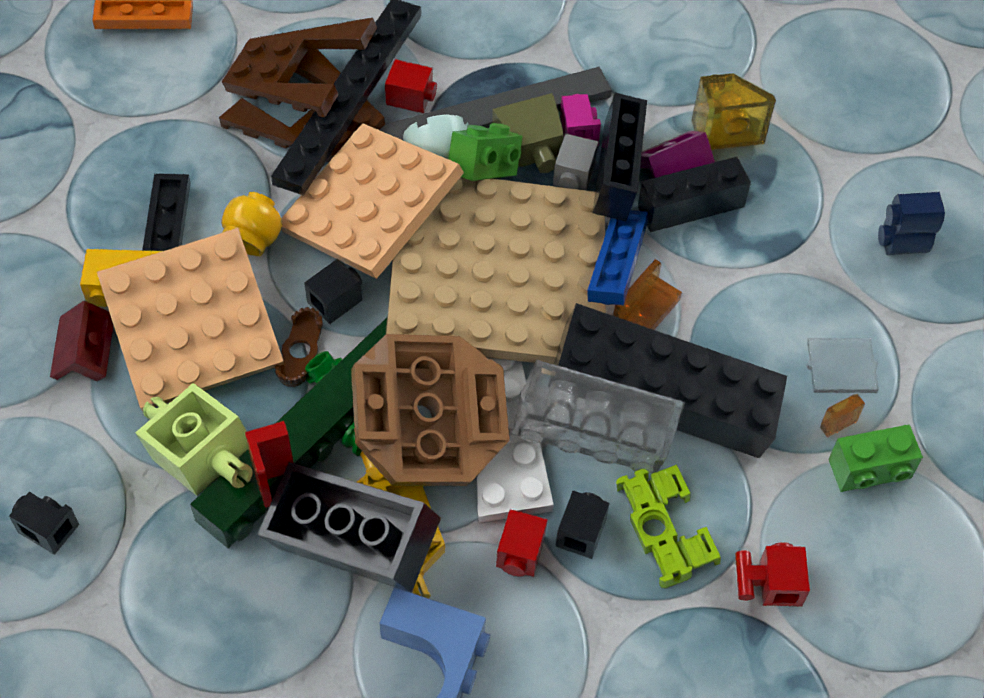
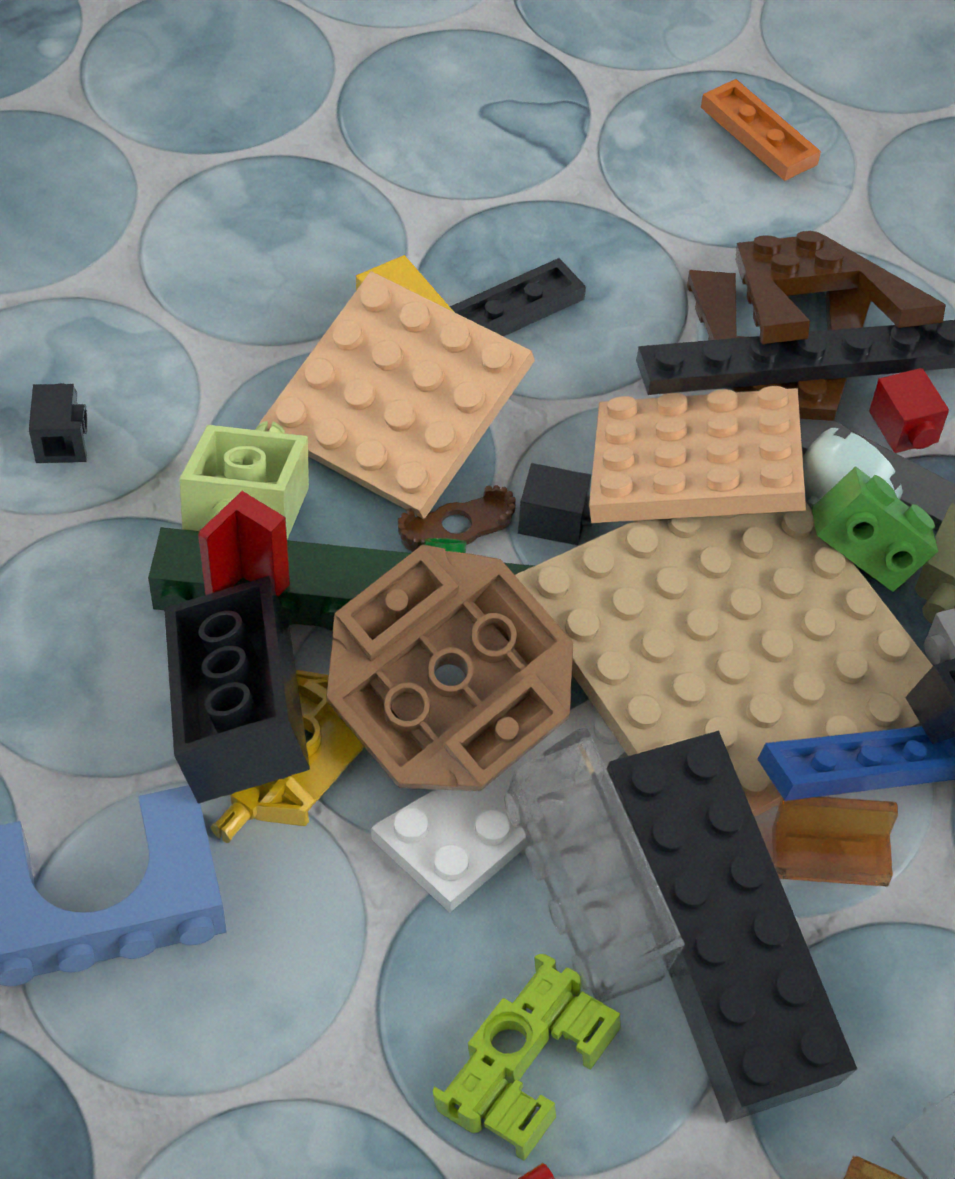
camera: 55 degrees right, 5 degrees down
(83, 342) = (294, 332): dark red panel -> none
(256, 220) = (570, 373): yellow piece -> none
(521, 543) = (364, 895): red brick -> none
(582, 523) = (446, 949): black brick -> none

